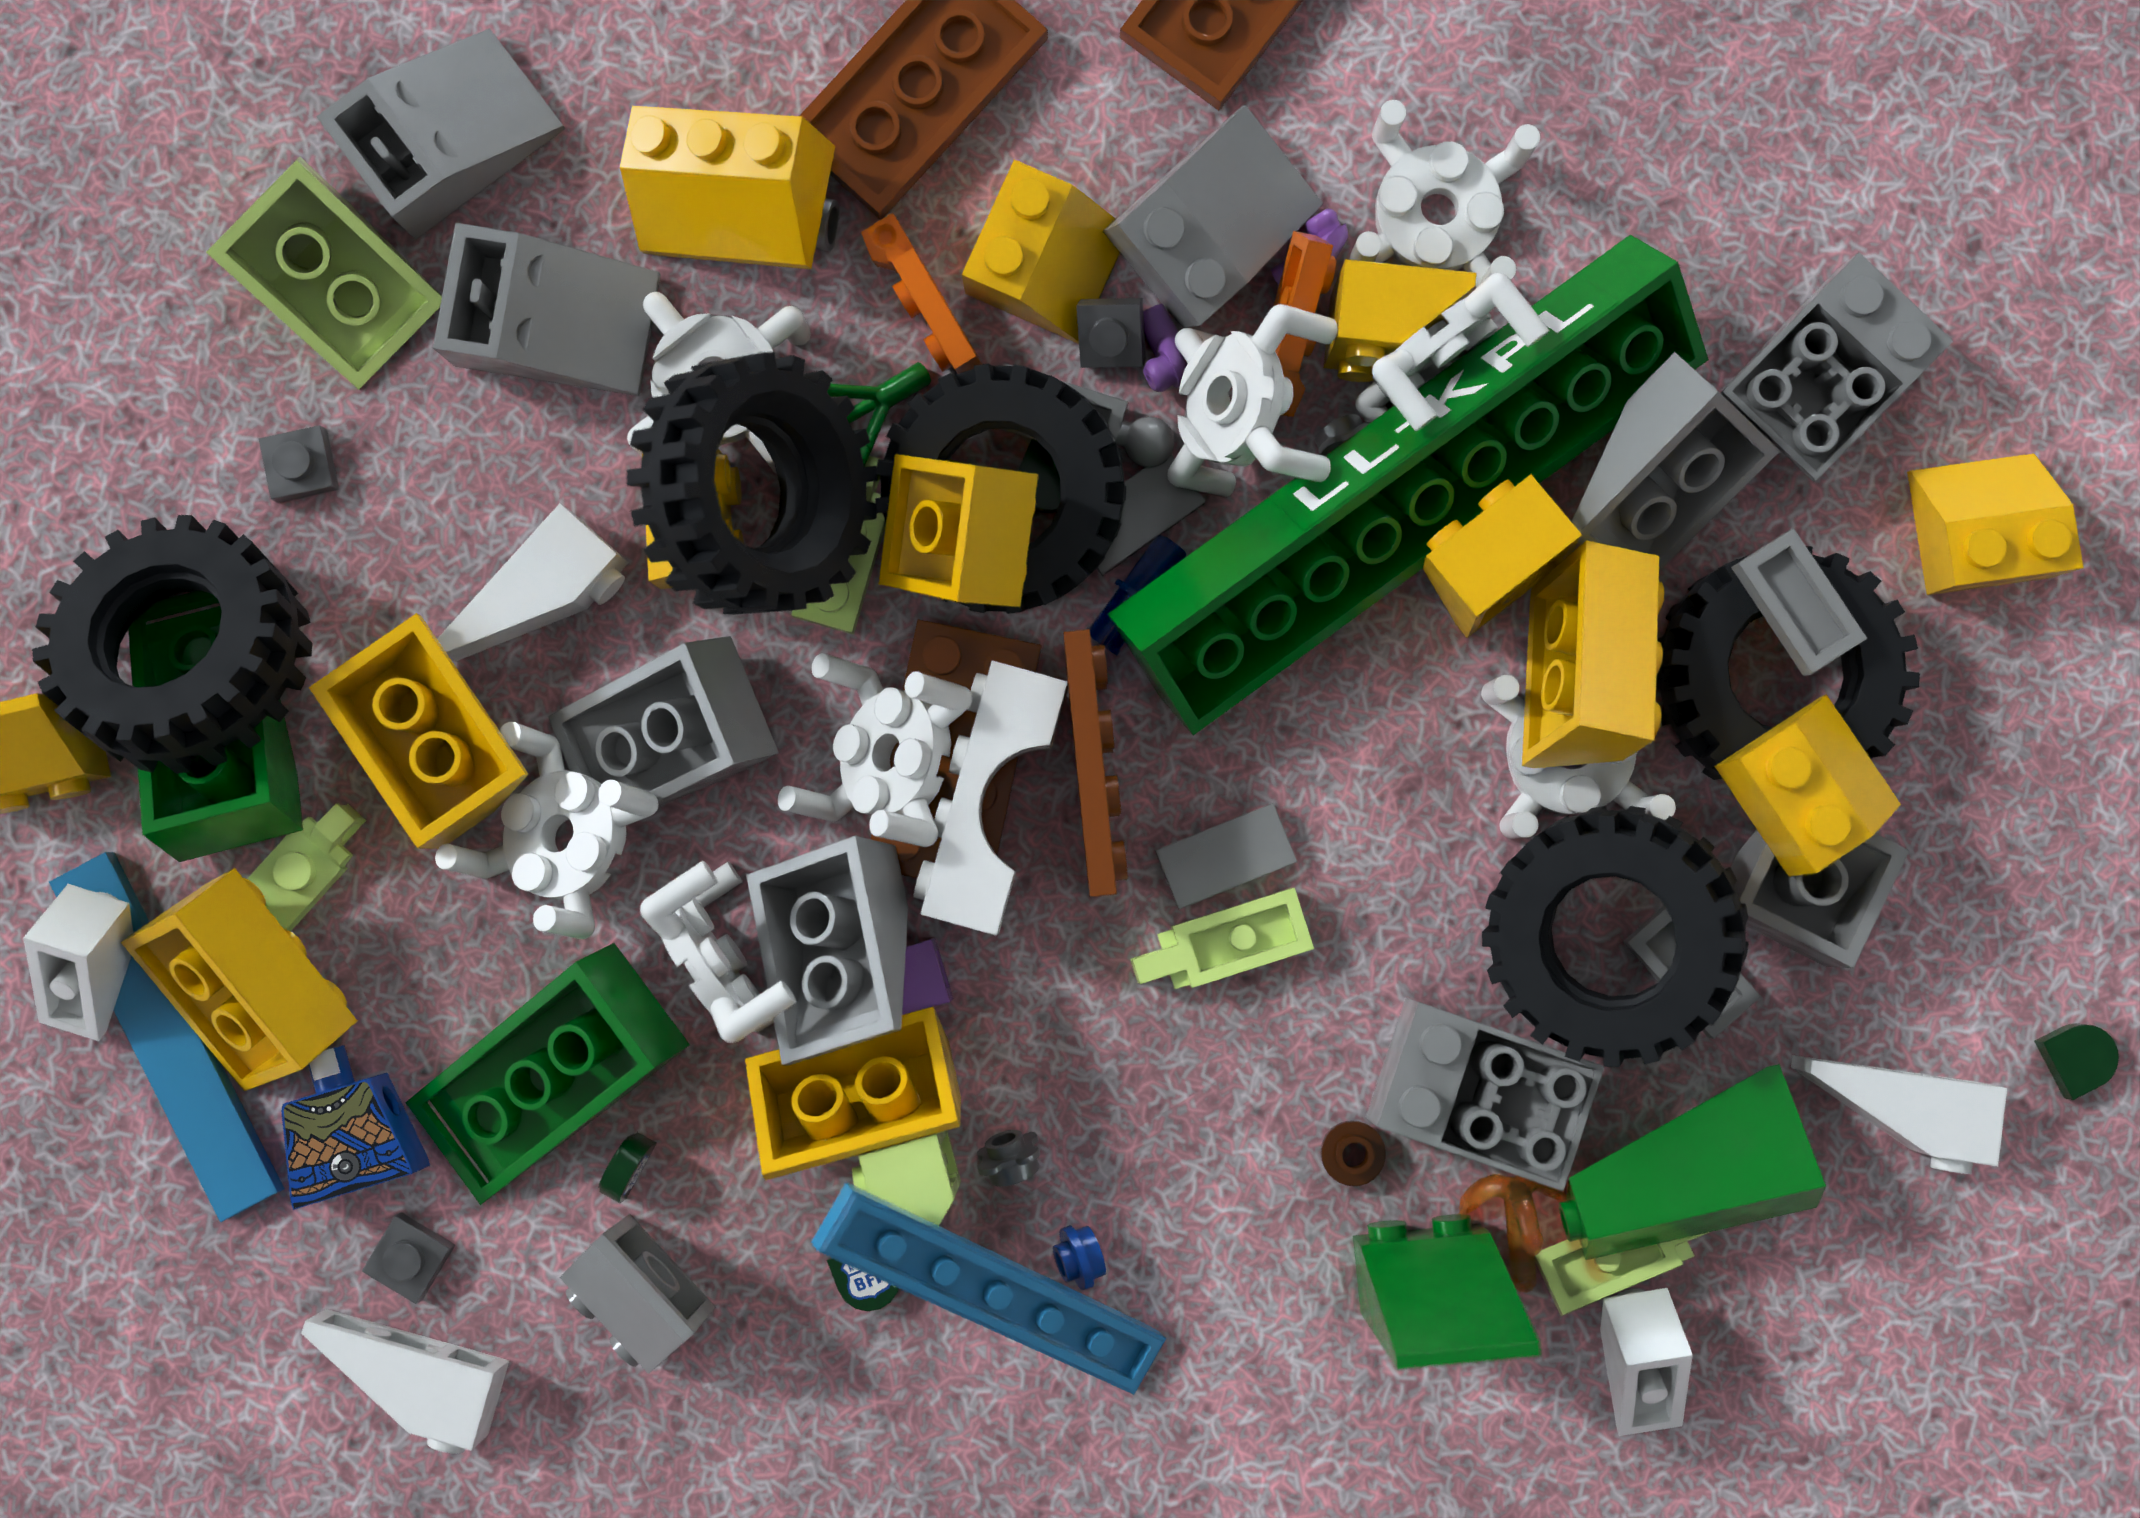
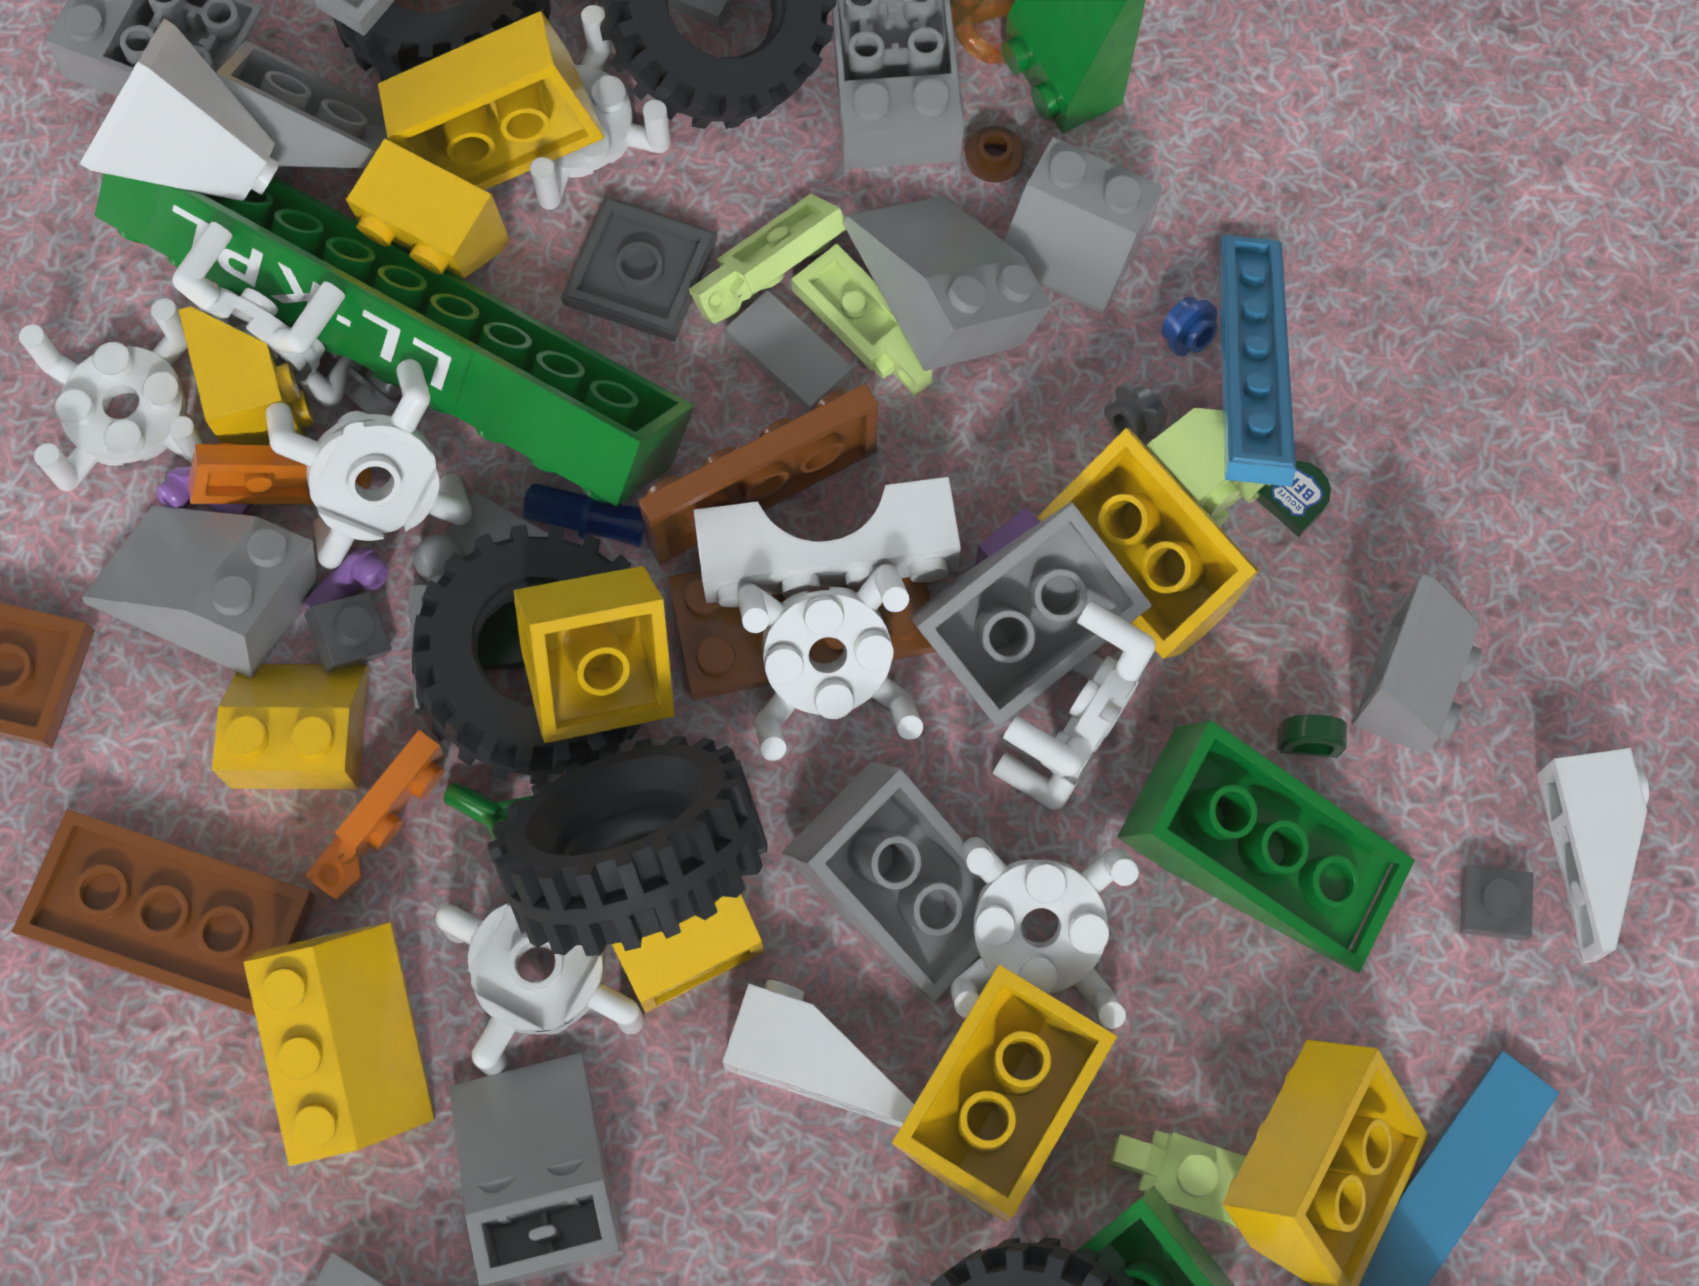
camera: 120 degrees left, 15 degrees down
(346, 1133) = (1419, 1000): torso -> none
(1230, 1037) = (948, 280): none -> light grey slope
(1231, 1197) = (1081, 223): none -> light grey slope
(1333, 878) = (766, 256): none -> yellowish green hinge
(1377, 750) = (639, 268): none -> dark grey tile
(1671, 336) = (182, 126): none -> white slope

